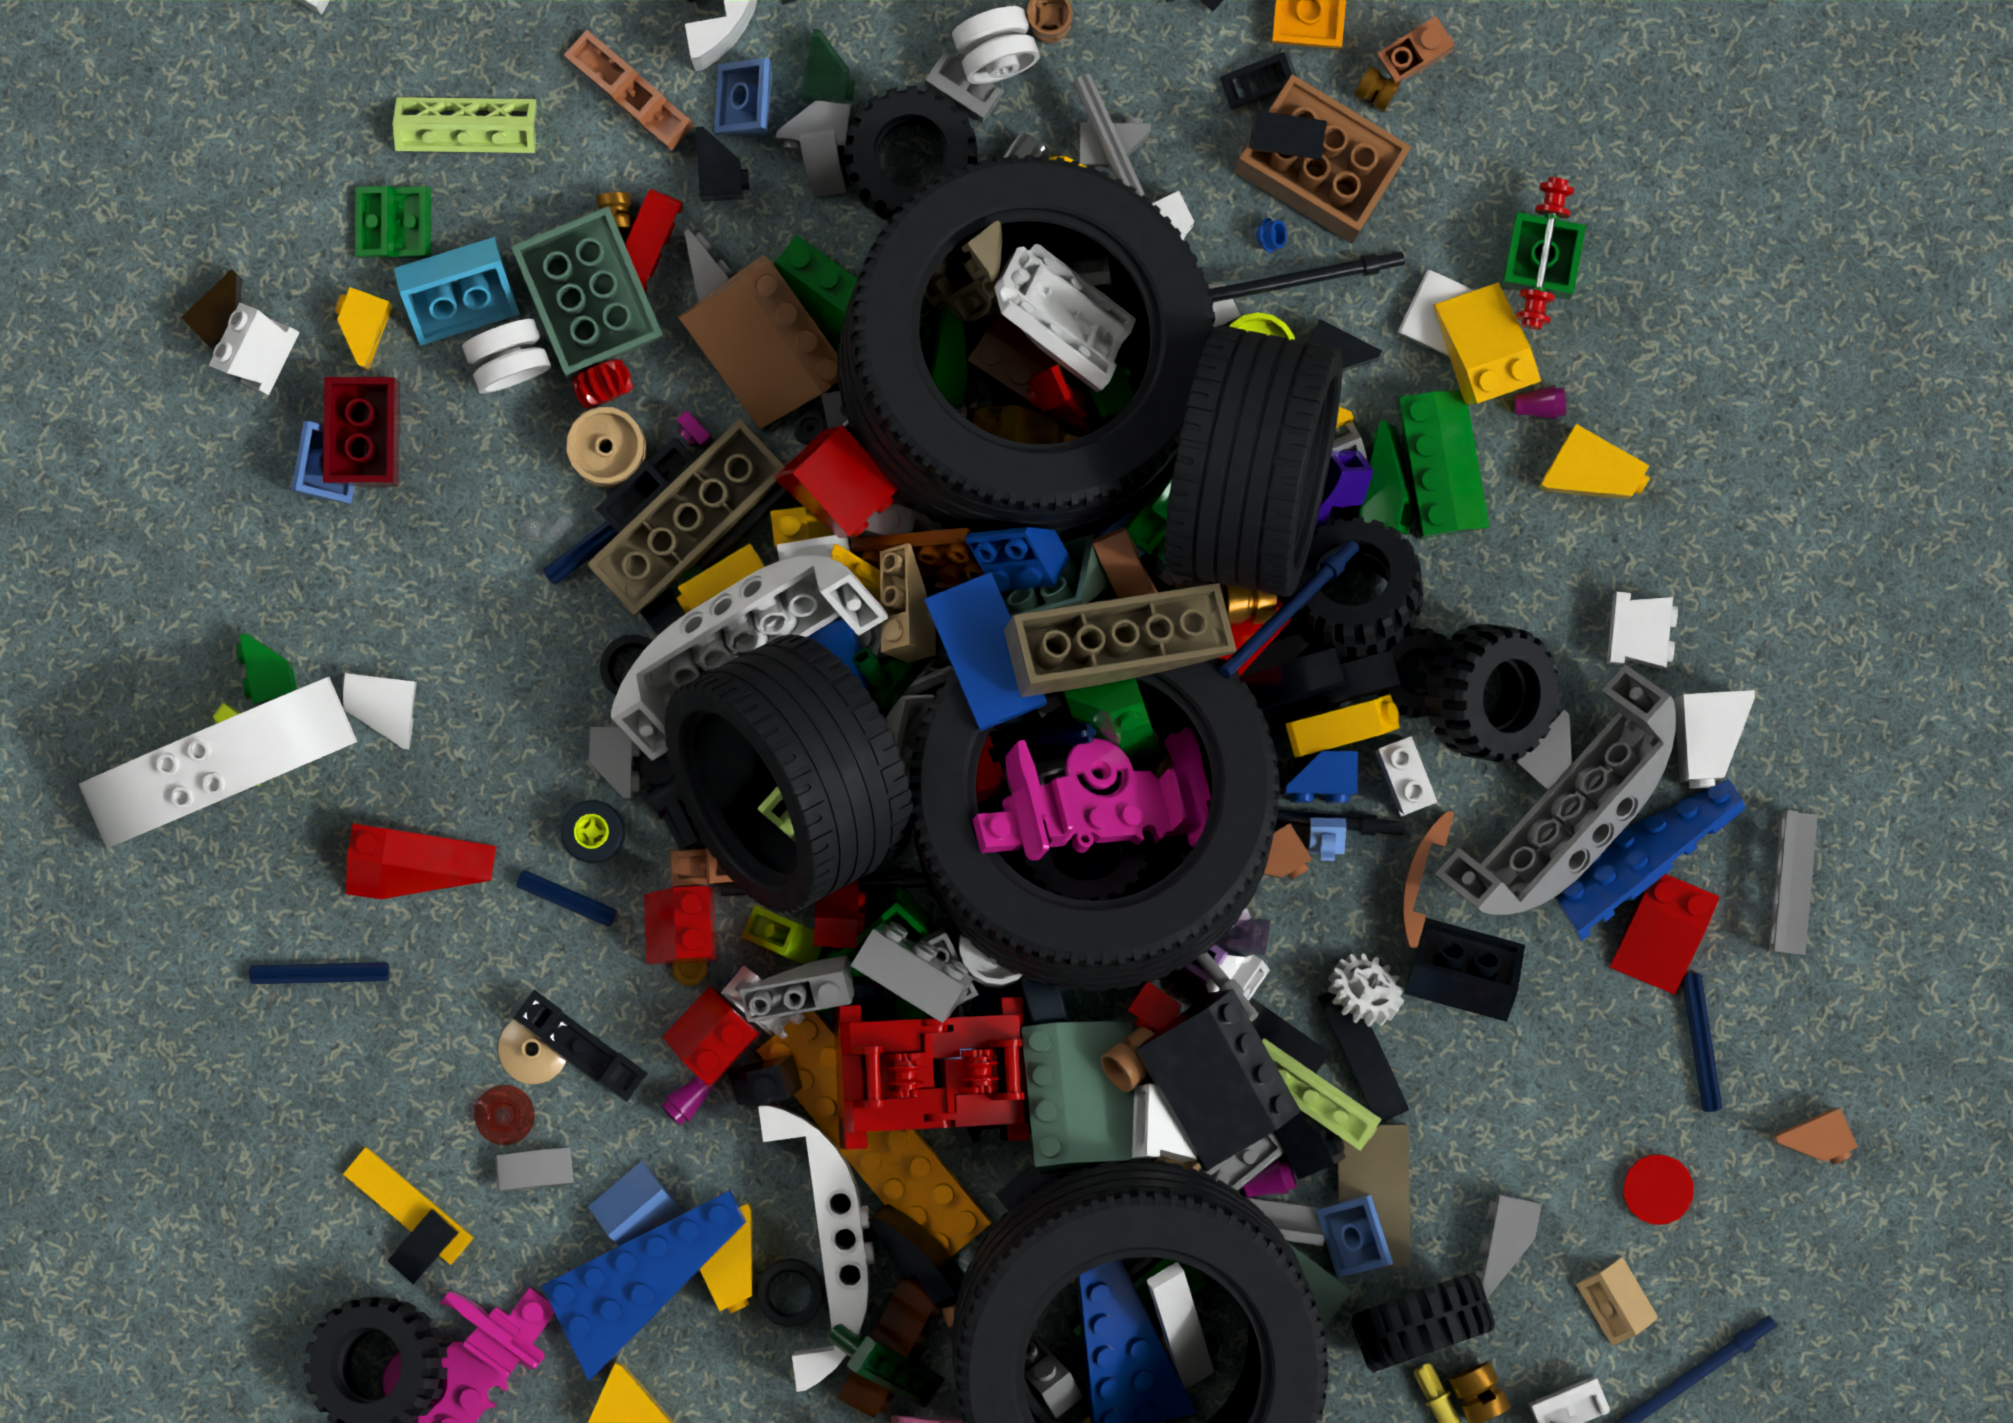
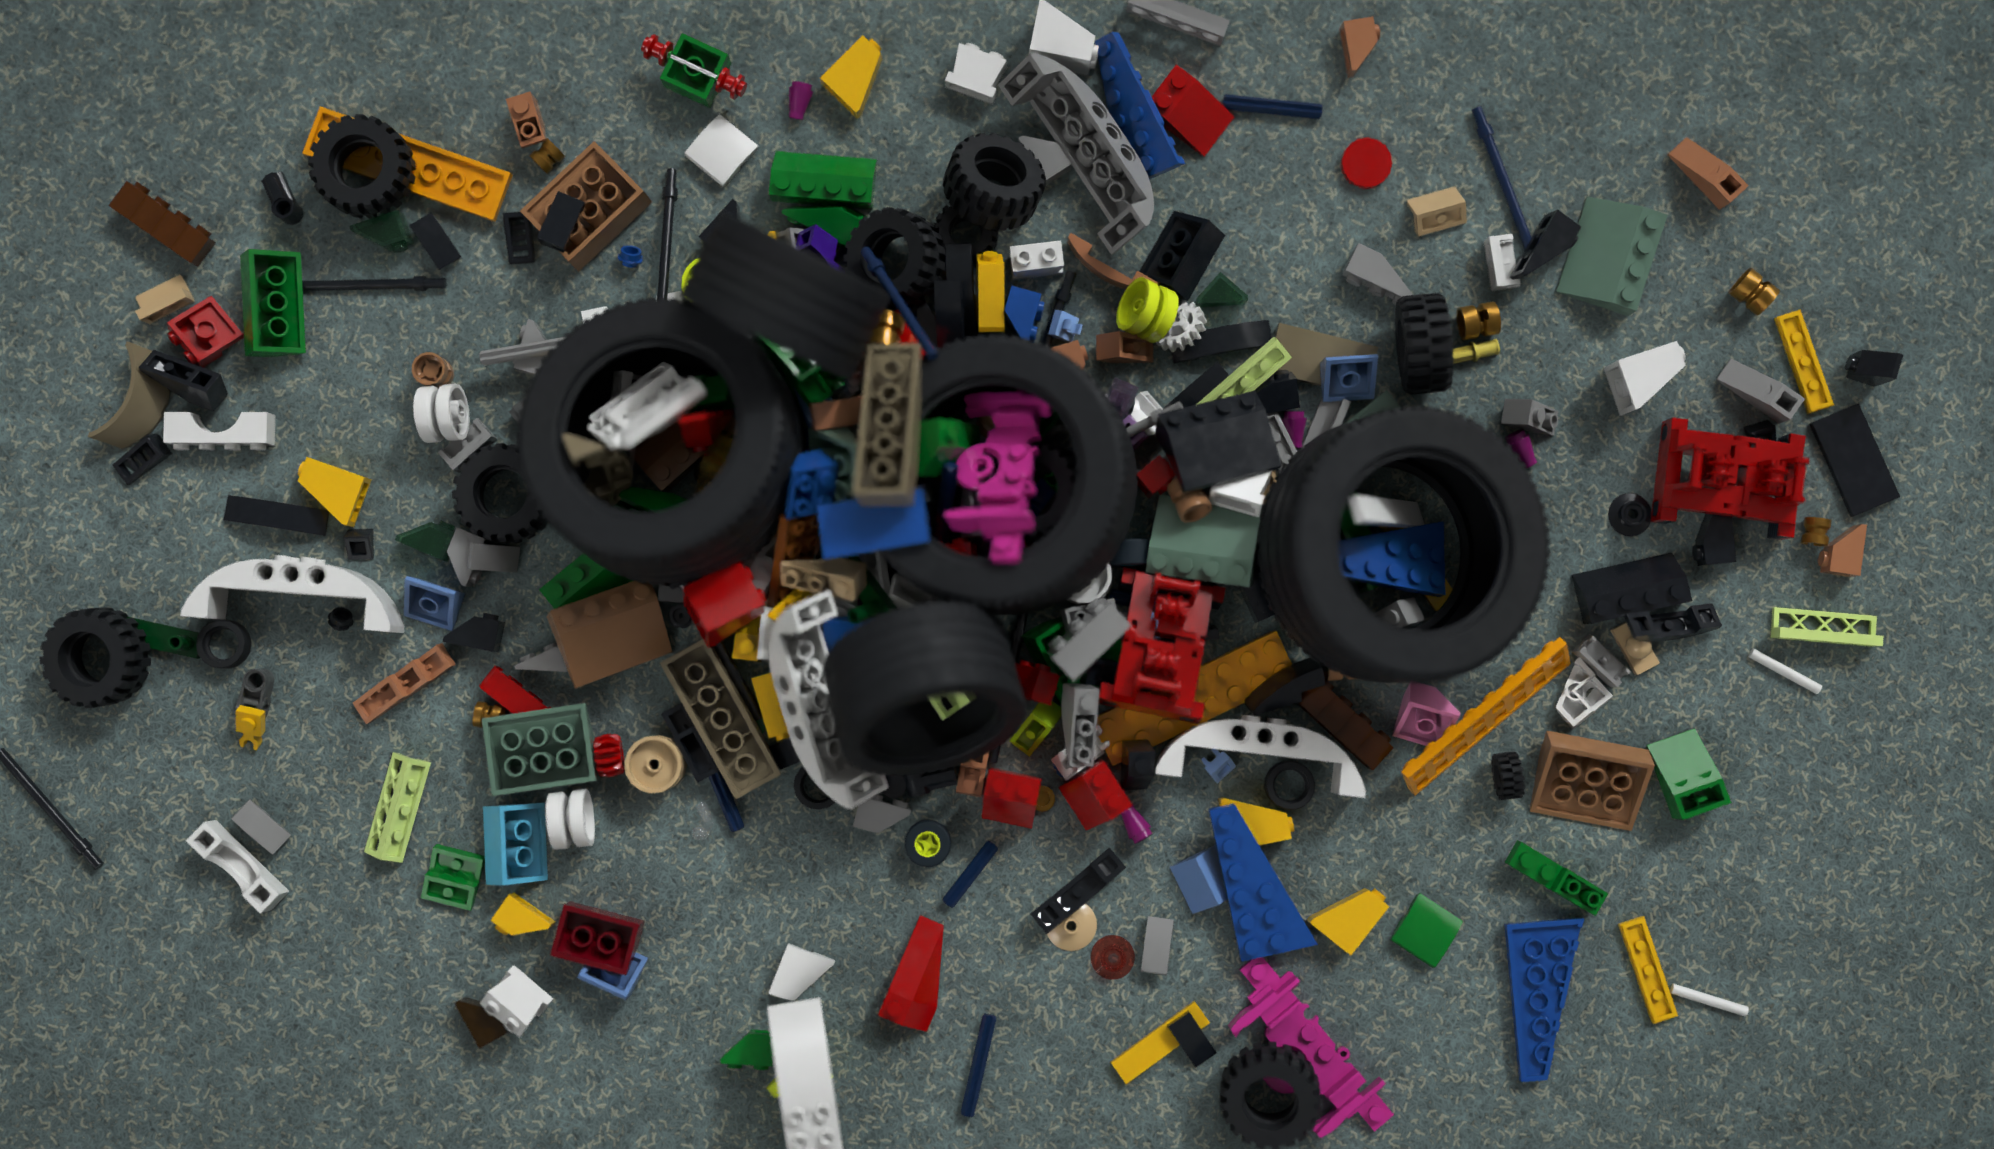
camera: 80 degrees left, 0 degrees up
(692, 431) = (660, 699): magenta plate -> none
(791, 1192) = (1220, 766): none -> light blue tile
(887, 1366) = (1361, 730): dark green piece -> none
(1319, 925) = (1123, 348): none -> nougat slope
(1374, 941) = (1147, 310): none -> neon yellow wheel
(1427, 1035) = (1221, 293): none -> clear green slope
(1485, 344) = (748, 126): yellow slope -> none

